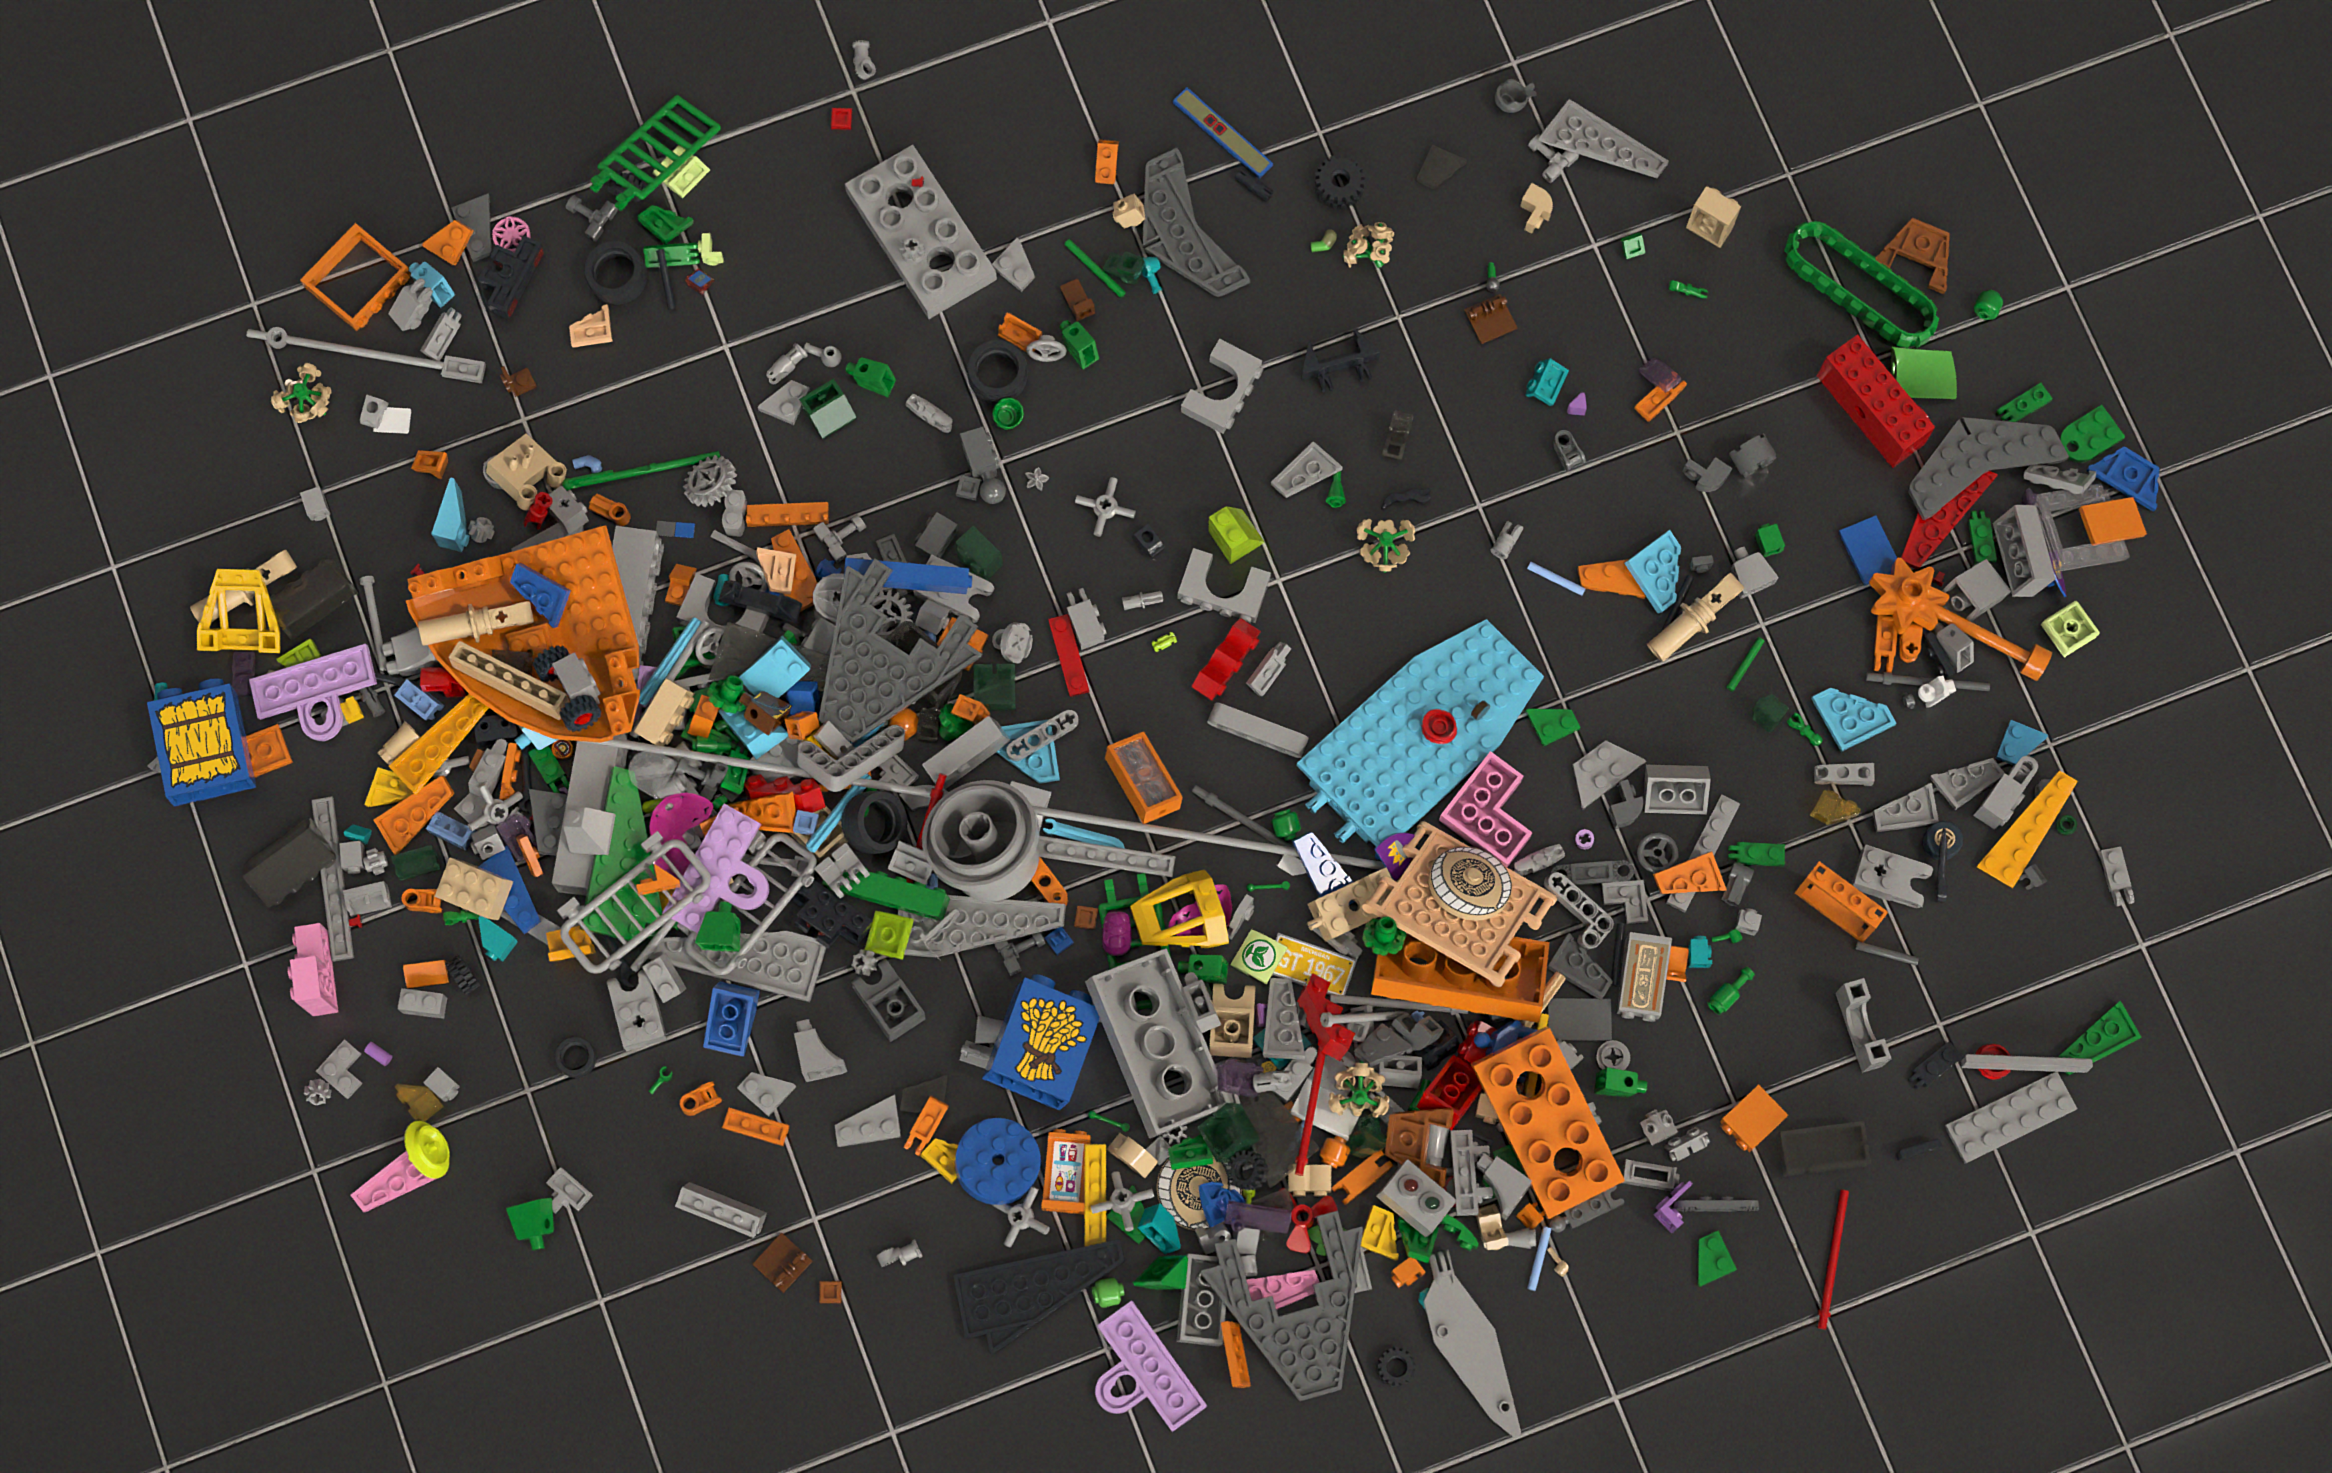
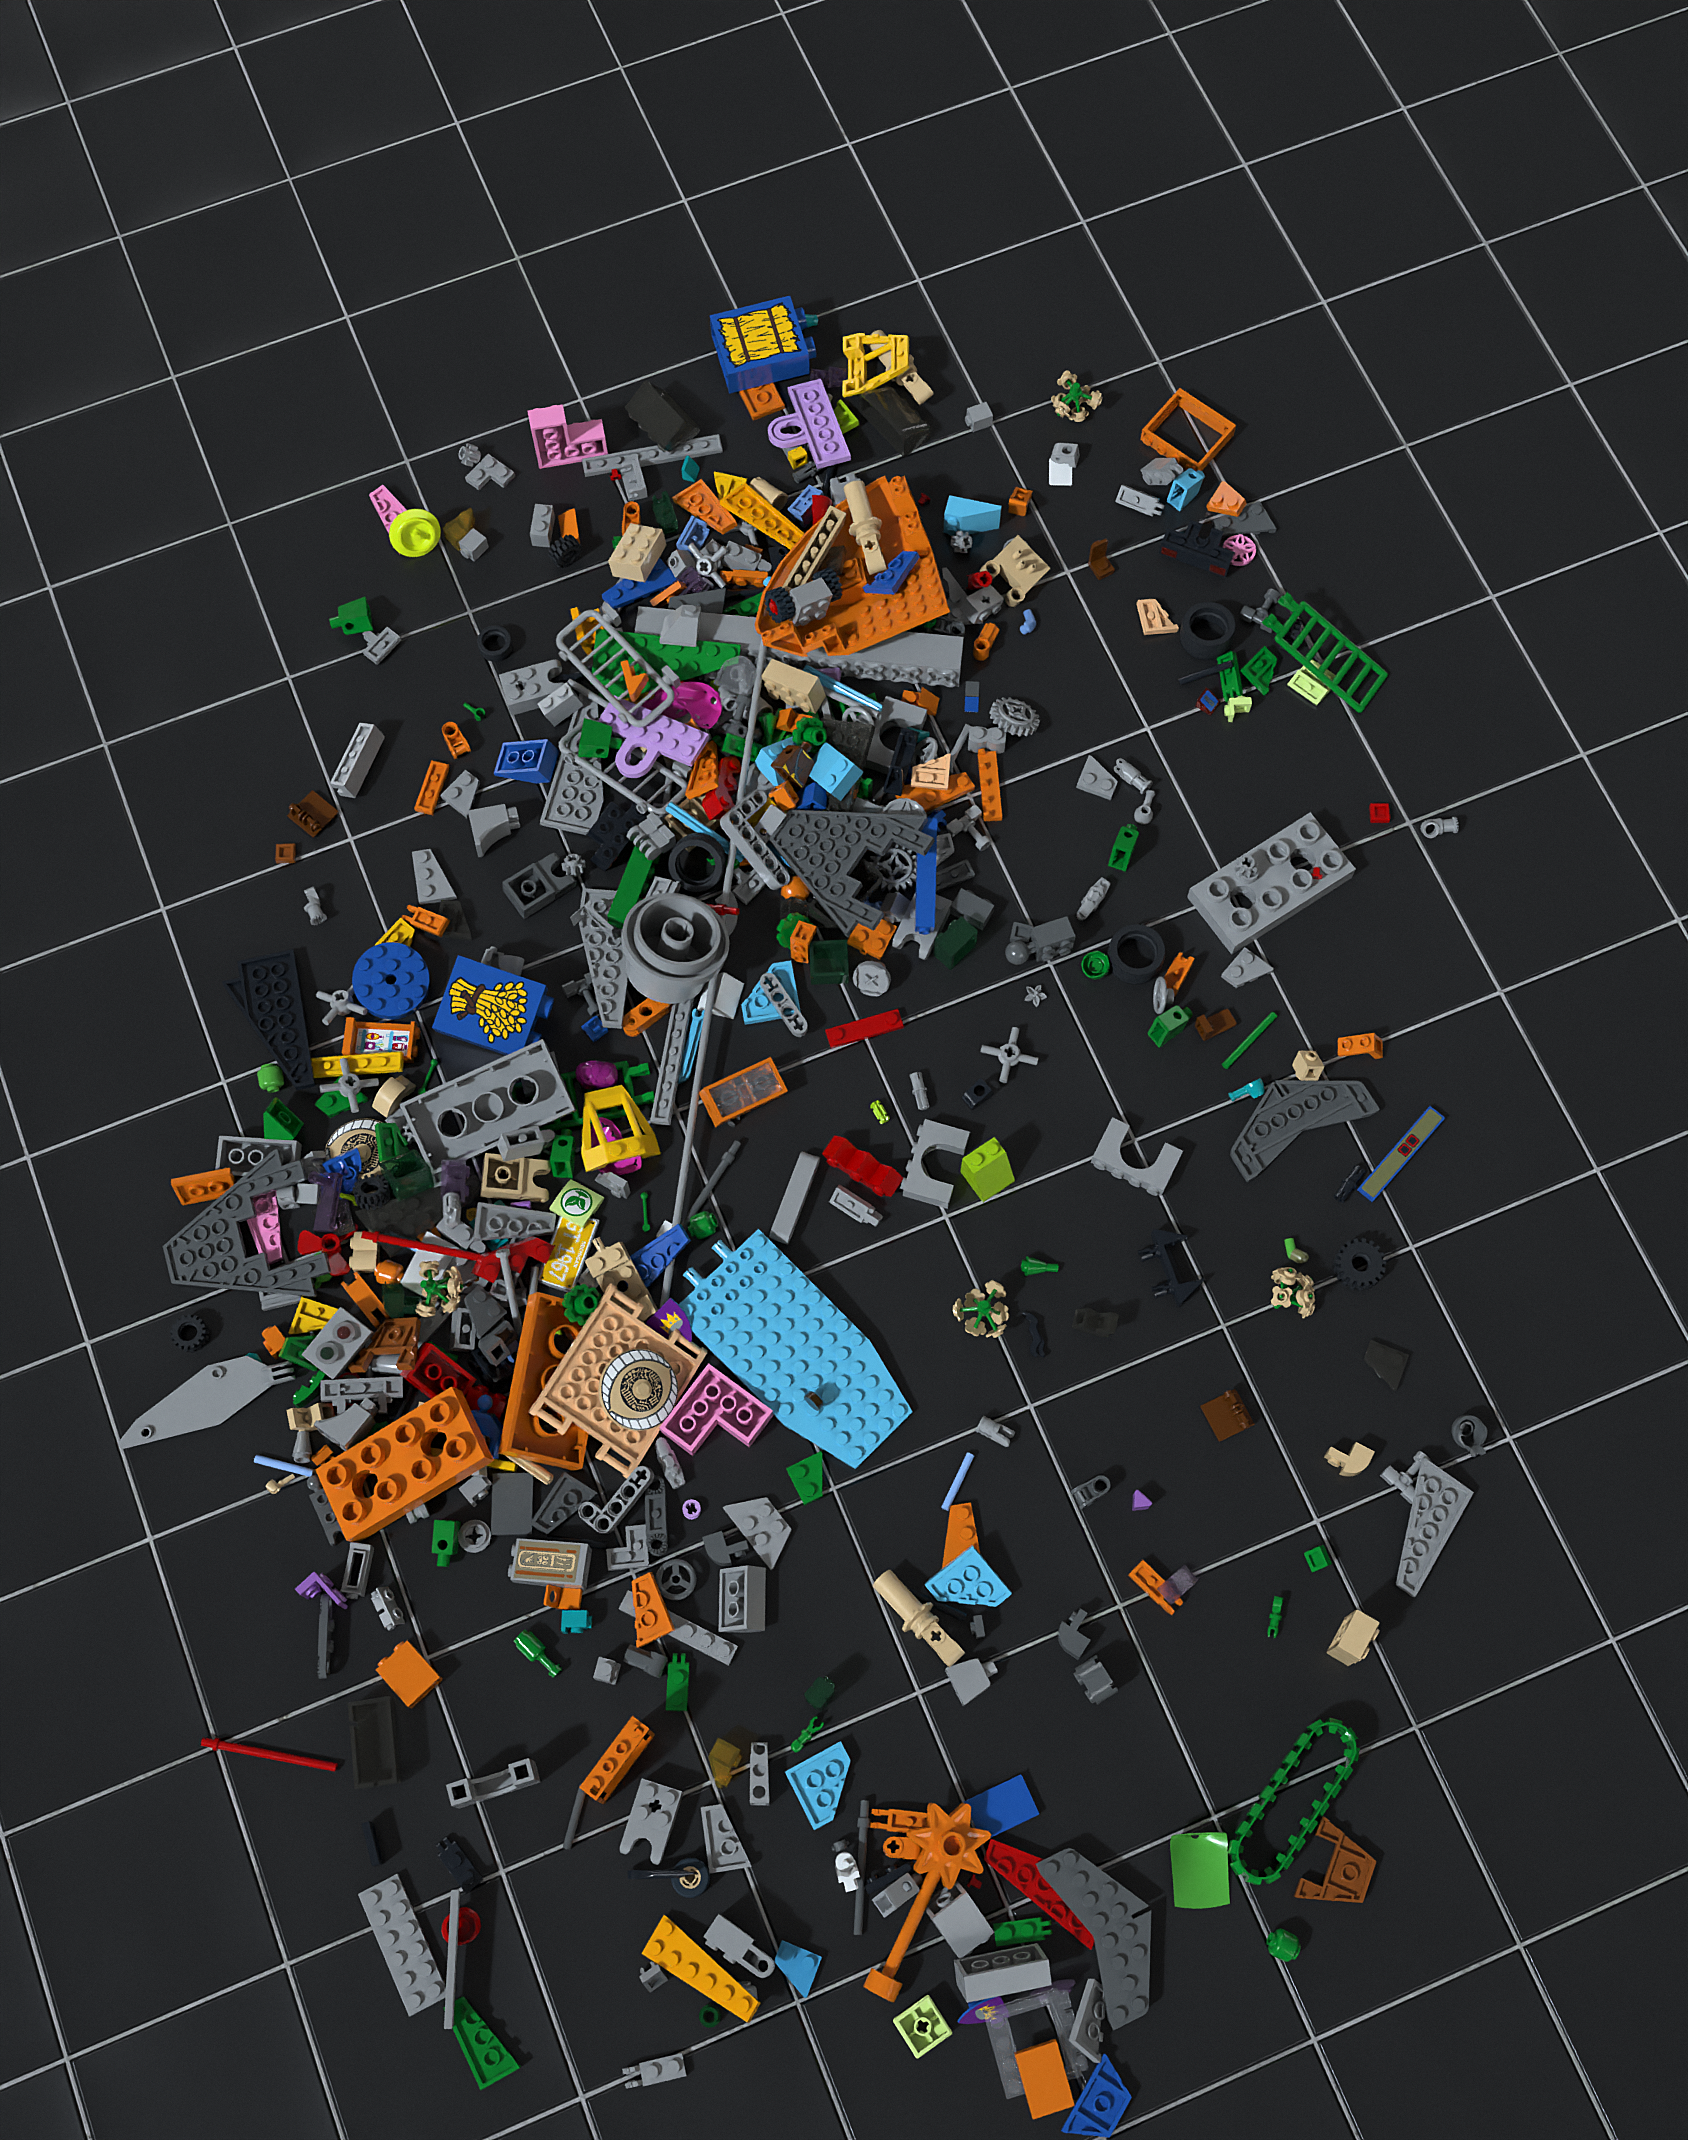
camera: 90 degrees right, 5 degrees down
(352, 857) = (669, 466): light grey brick -> none
(367, 581) = (881, 468): light grey bar -> none
(375, 861) = (664, 482): light grey gear -> none
(378, 1053) = (502, 498): medium lavender piece -> none
(451, 367) = (1110, 510): light grey bar -> none
(495, 940) = (596, 577): teal slope -> none
(609, 475) = (1007, 608): green bar -> none
(805, 823) = (692, 802): medium blue tile -> none
(827, 408) = (1090, 811): slope -> none
(889, 935) = (598, 883): lime tile -> none
(967, 751) = (764, 937): light grey brick -> none
(1084, 621) = (897, 1040): light grey hinge -> none
(1086, 917) = (615, 1051): dark orange tile -> none
(1125, 267) = (1250, 1063): clear green brick -> none
(1152, 1368) = (203, 1117): lavender plate -> none
(1160, 1228) = (325, 1120): teal slope -> none
(1305, 471) = (1055, 1236): light grey wing -> none
(1439, 726) = (796, 1361): red piece -> none
(1492, 282) = (1265, 1416): piece -> none
(1547, 381) = (1163, 1470): teal bracket -> none
(1658, 1126) = (402, 1578): light grey brick -> none
(1713, 1259) = (275, 1634): green wing -> none
(1734, 935) = (592, 1658): green hand -> none
(1745, 664) = (875, 1673): green bar -> none
(1769, 540) = (1007, 1698): green brick -> none
(1875, 401) = (1161, 1810): red piece -> none
(1967, 782) = (753, 1906): light grey wing -> none
(2025, 404) = (1174, 1985): green hinge -> none
(2091, 435) = (1143, 2060): green plate -> none

